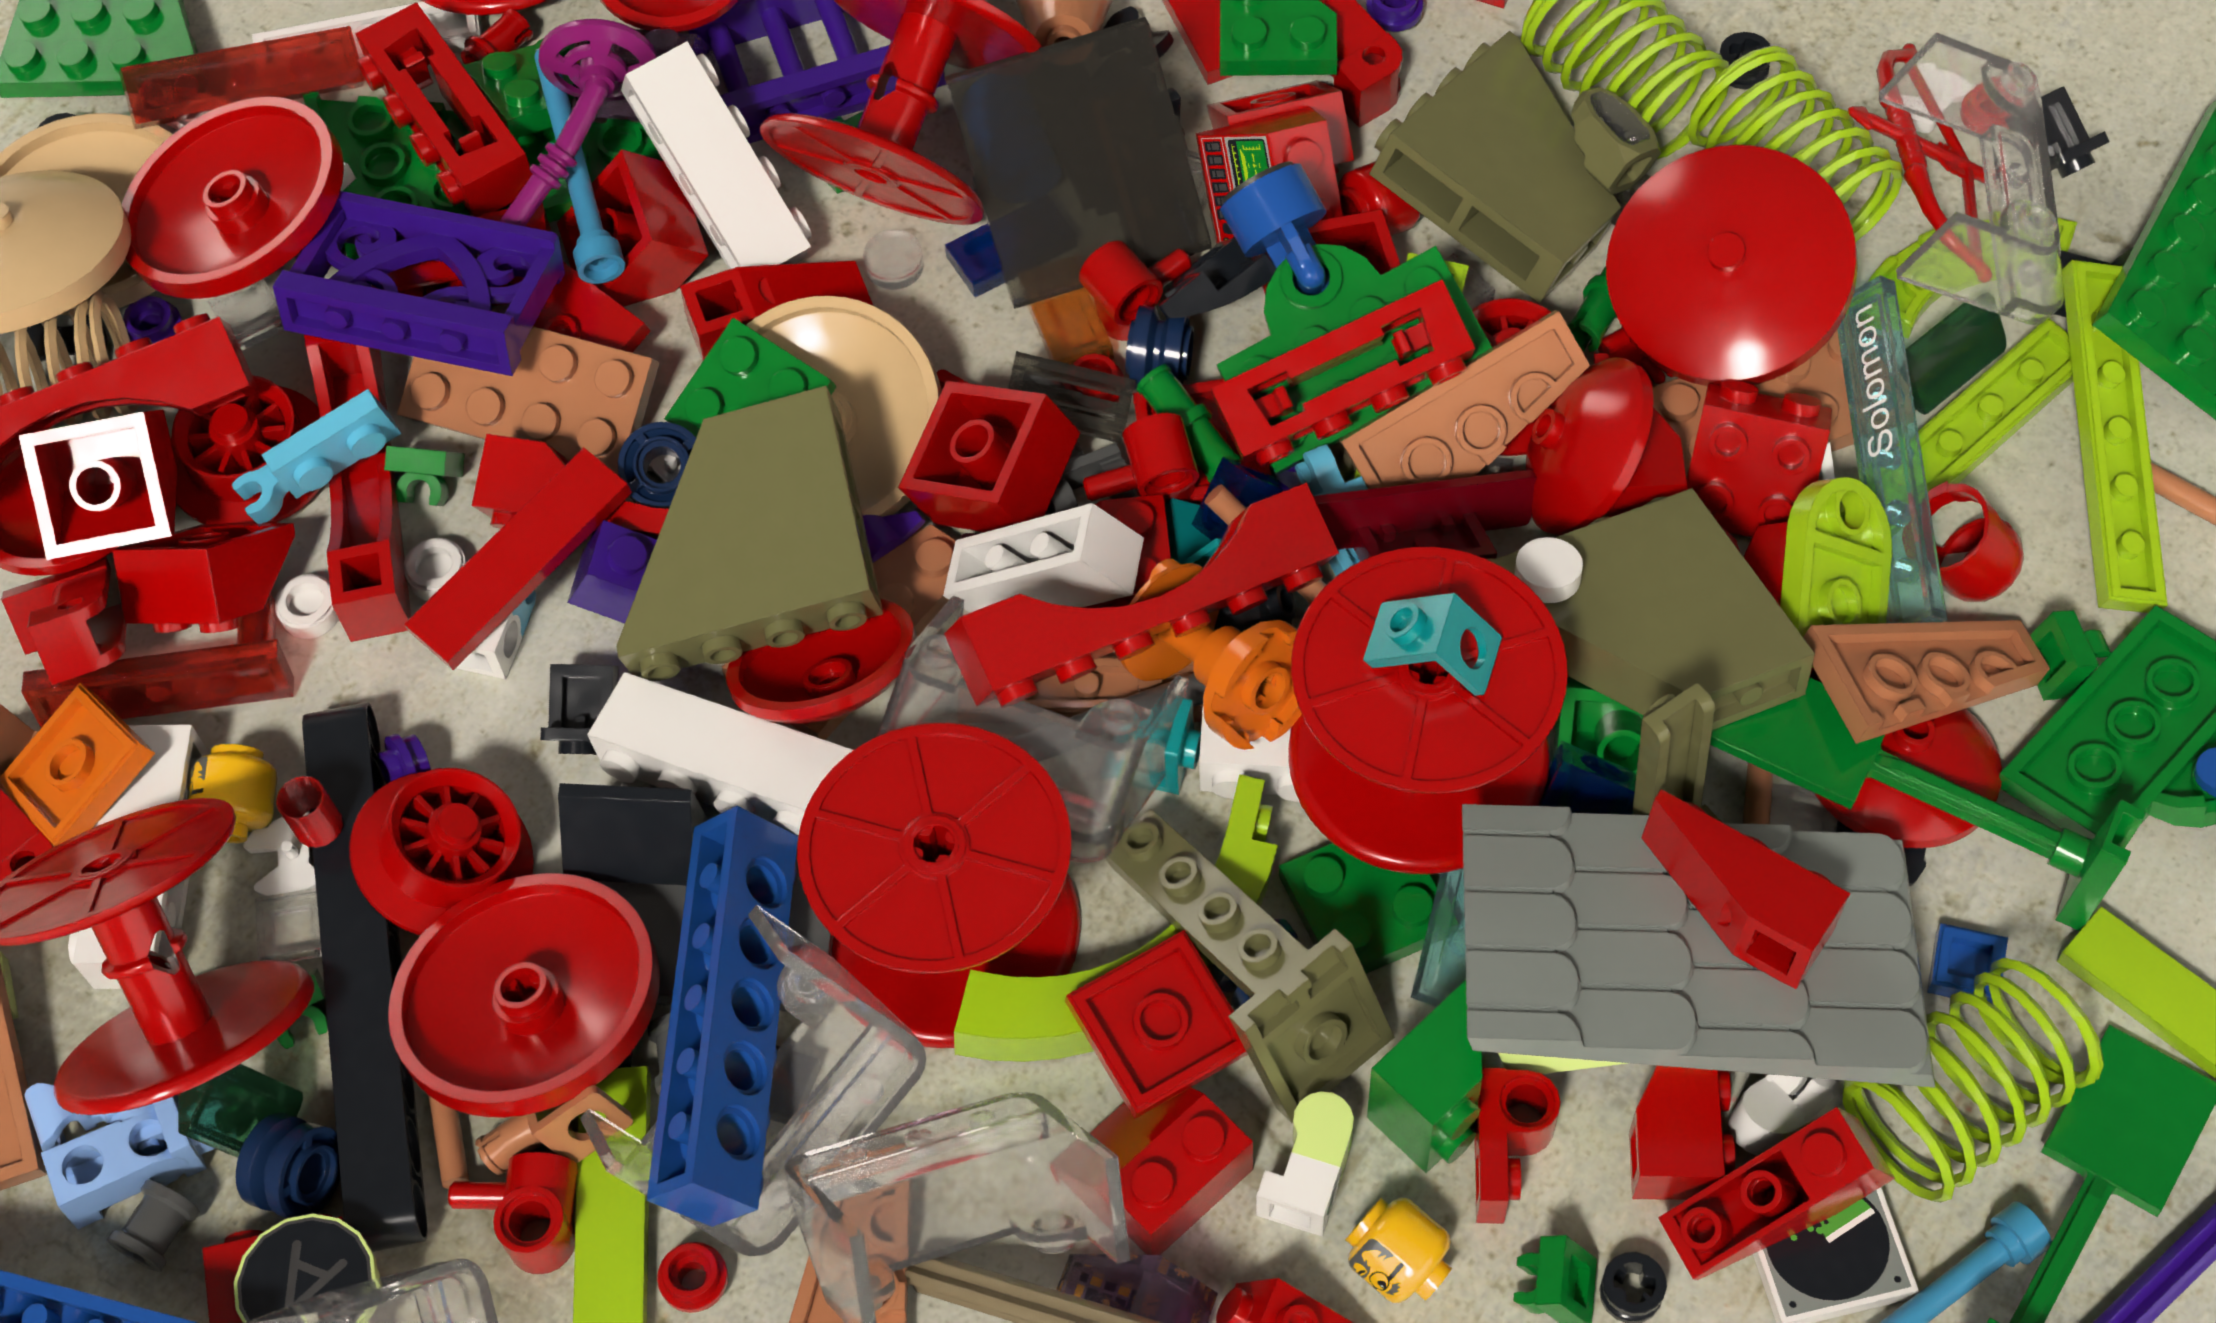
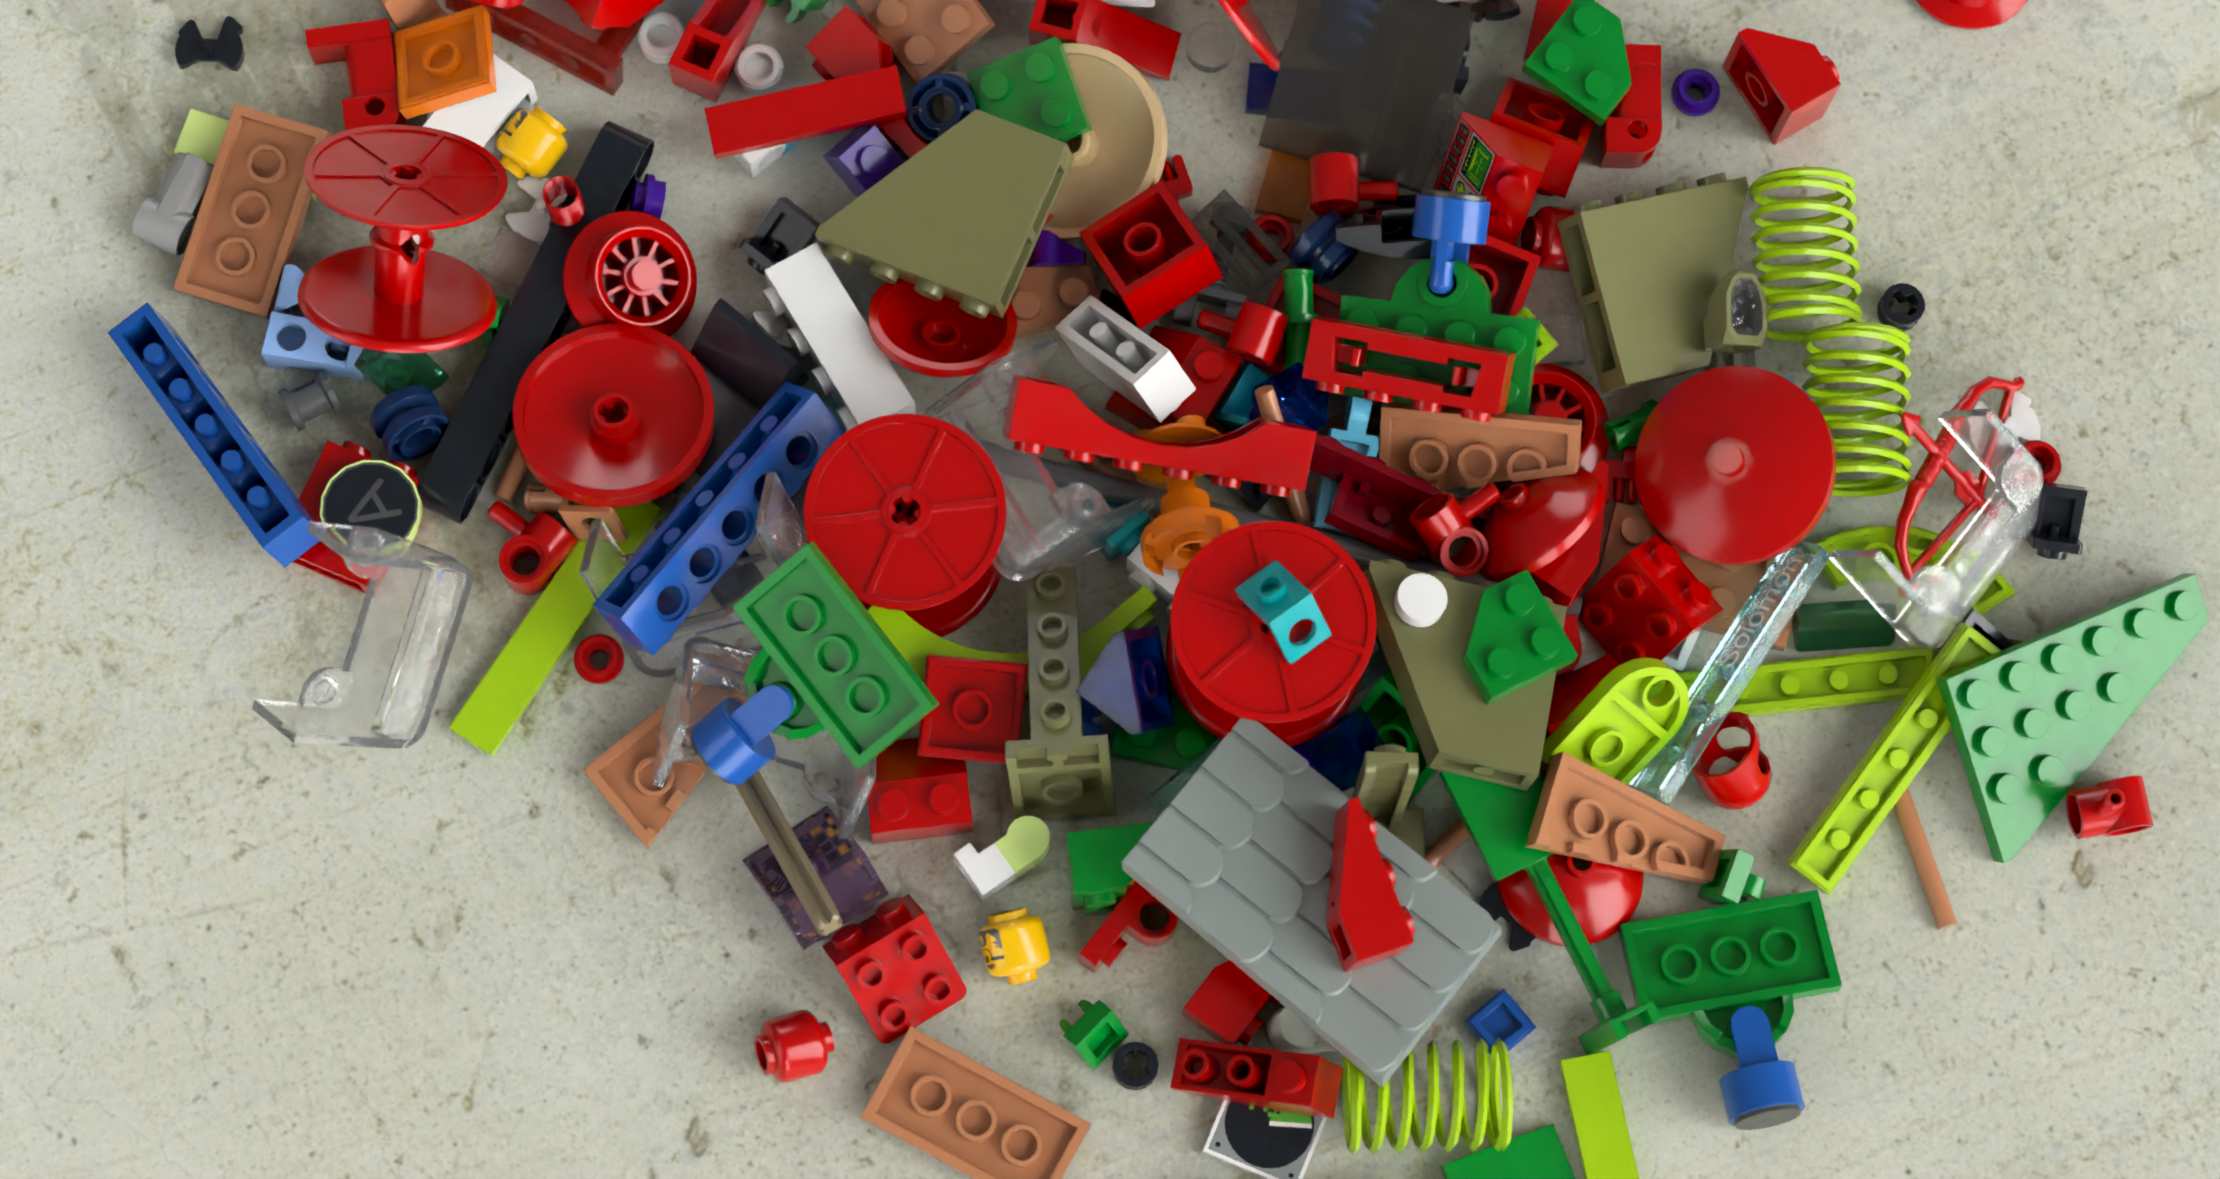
camera: 25 degrees right, 15 degrees up
(961, 1081) = (816, 672): none -> green plate
(1306, 870) = (1131, 682): none -> clear blue slope
(1500, 496) = (1444, 519): none -> red piece
(1672, 544) = (1514, 638): none -> green plate

